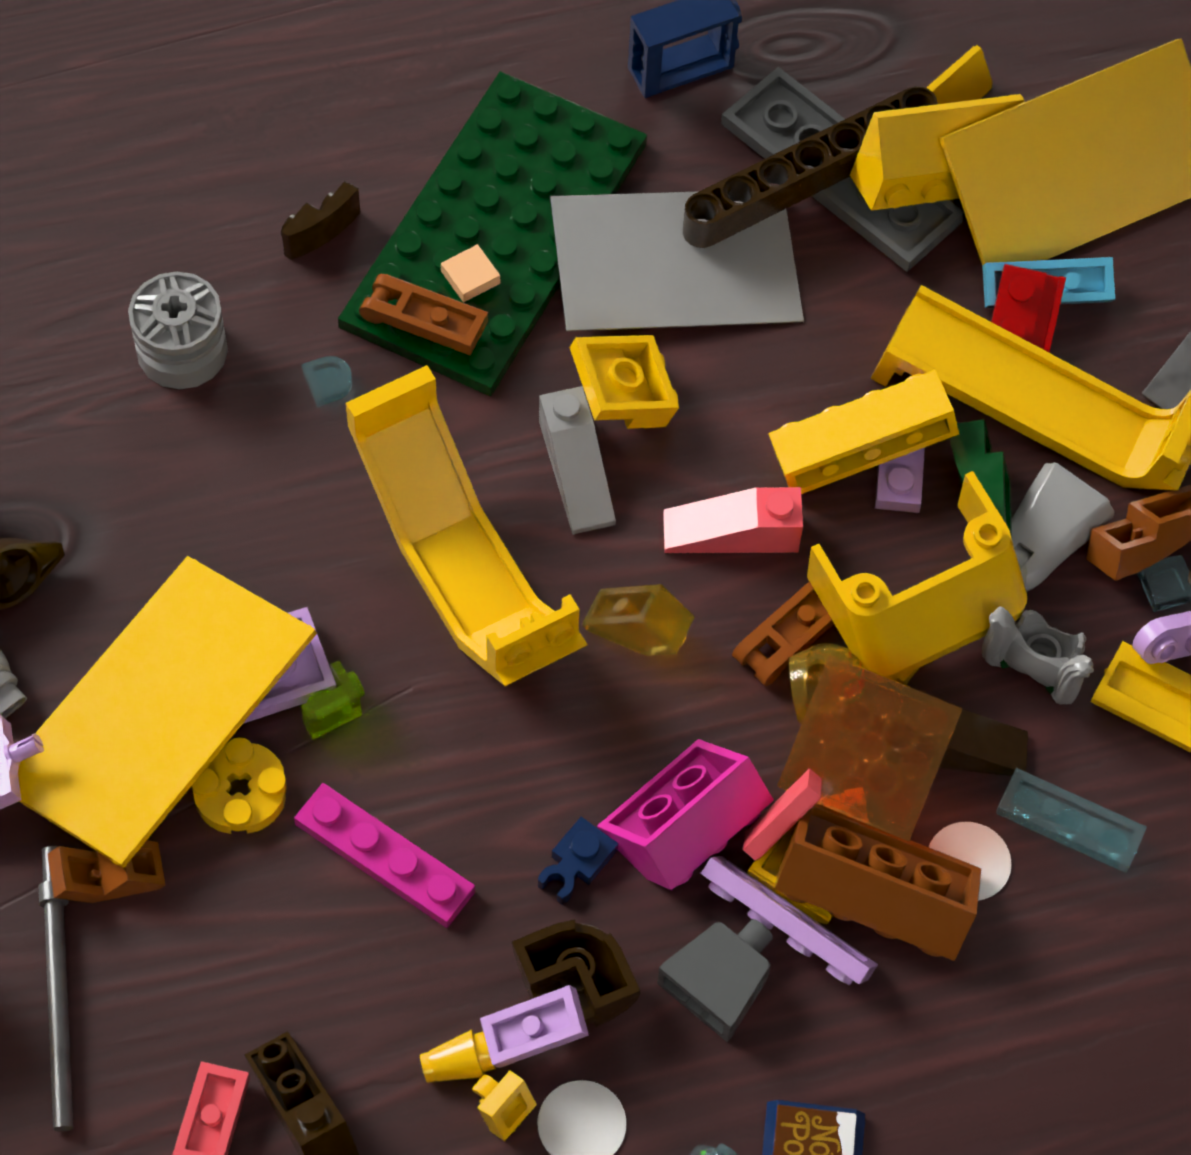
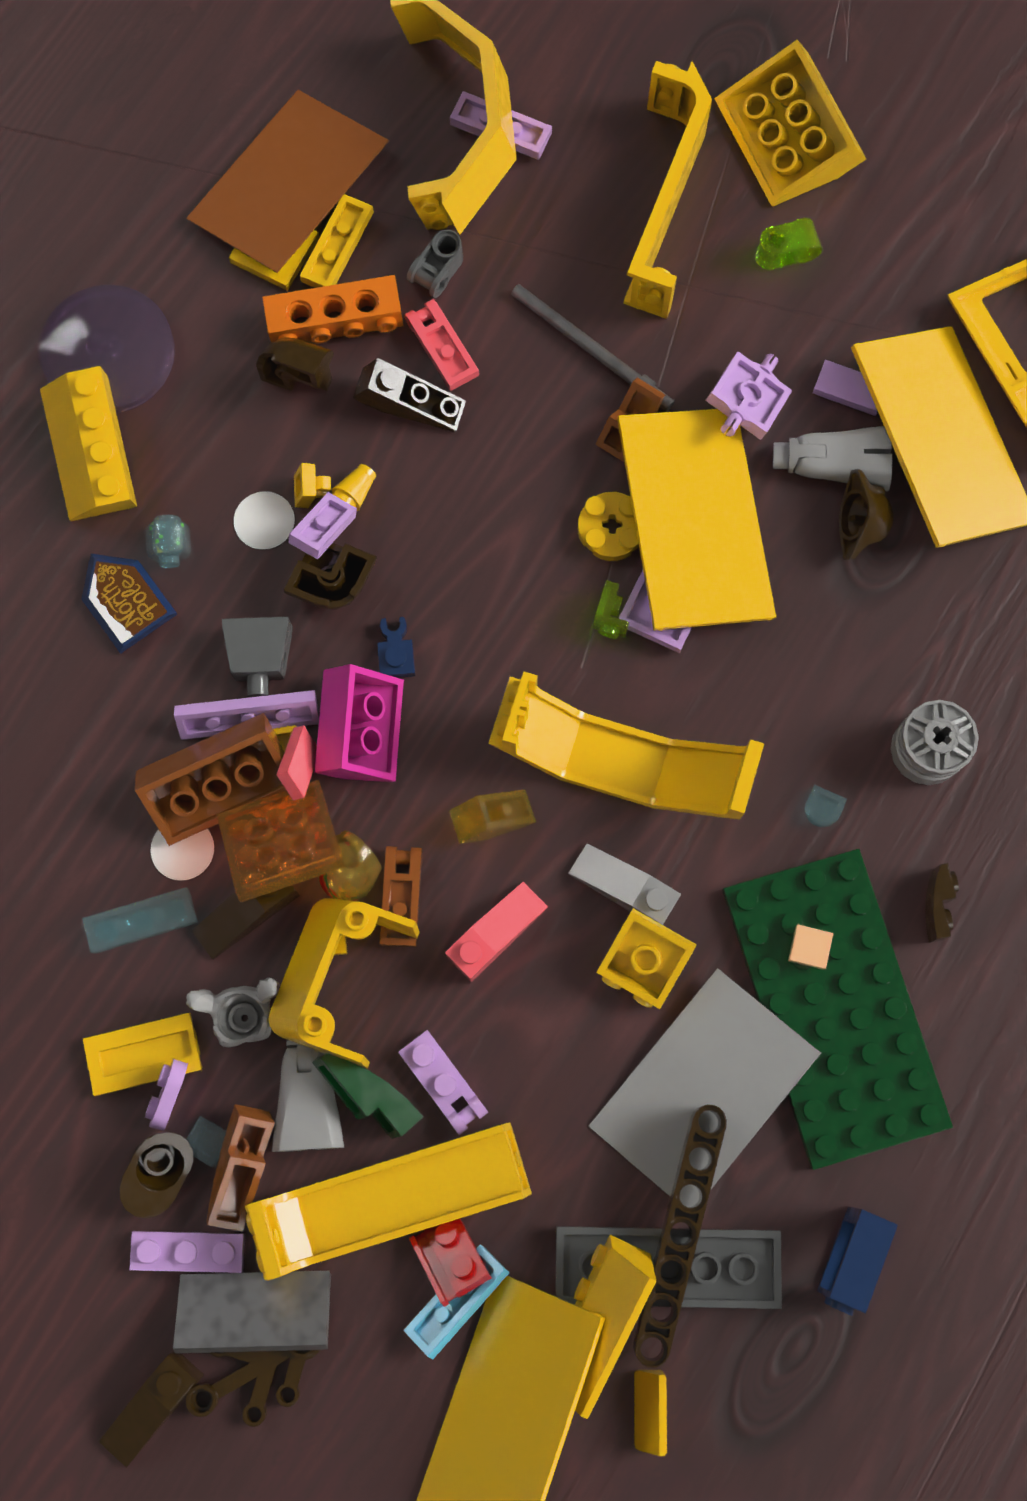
camera: 140 degrees right, 15 degrees up
(385, 855) = (499, 560): dark pink plate -> none
(424, 313) = (805, 889): dark orange plate -> none
(865, 432) = (468, 1058): yellow brick -> none

